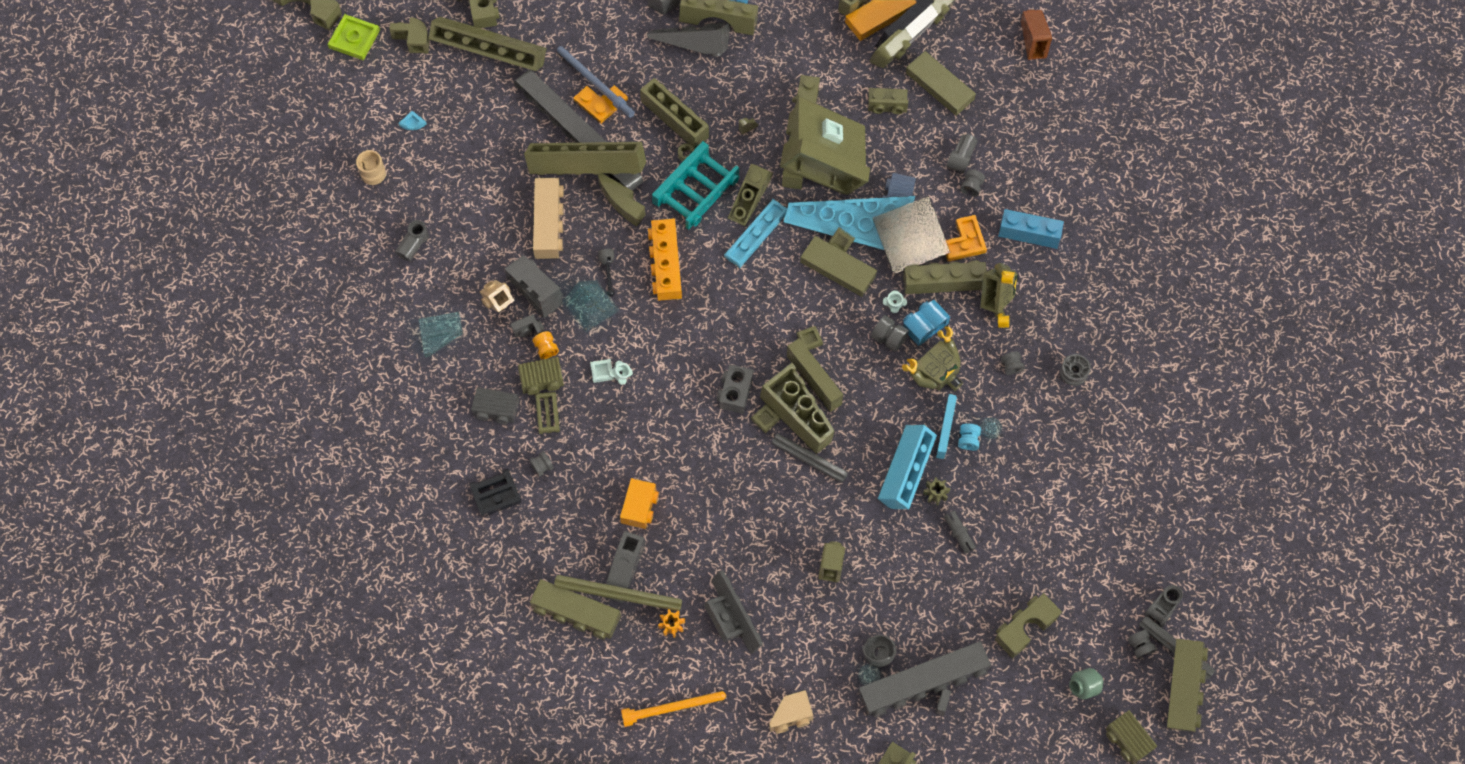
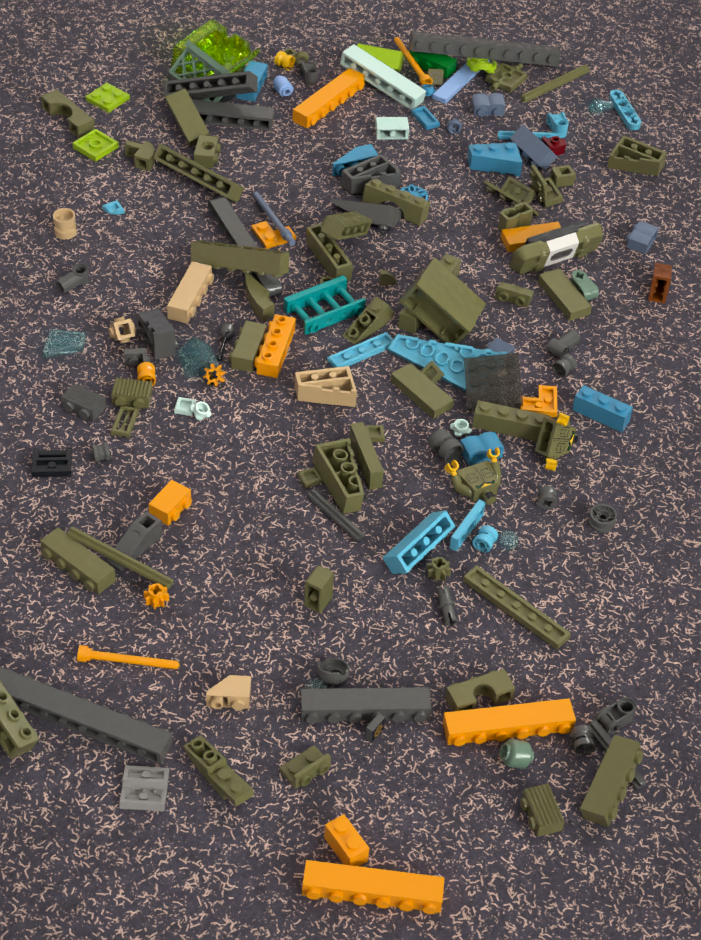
camera: 15 degrees right, 20 degrees down
(614, 317) = (209, 375): none -> light orange gear
(637, 270) = (247, 346): none -> olive brick
(681, 73) = (345, 225): none -> olive brick
(730, 615) = (210, 605): dark grey bracket -> none
(737, 389) = (293, 447): dark grey brick -> none
(741, 298) = (326, 386): none -> tan wedge
(832, 131) = (453, 288): light aqua tile -> none
(958, 66) = (584, 285): none -> sand green piece
(1027, 509) = (517, 607): none -> olive plate
(1066, 649) = (508, 722): none -> light orange brick

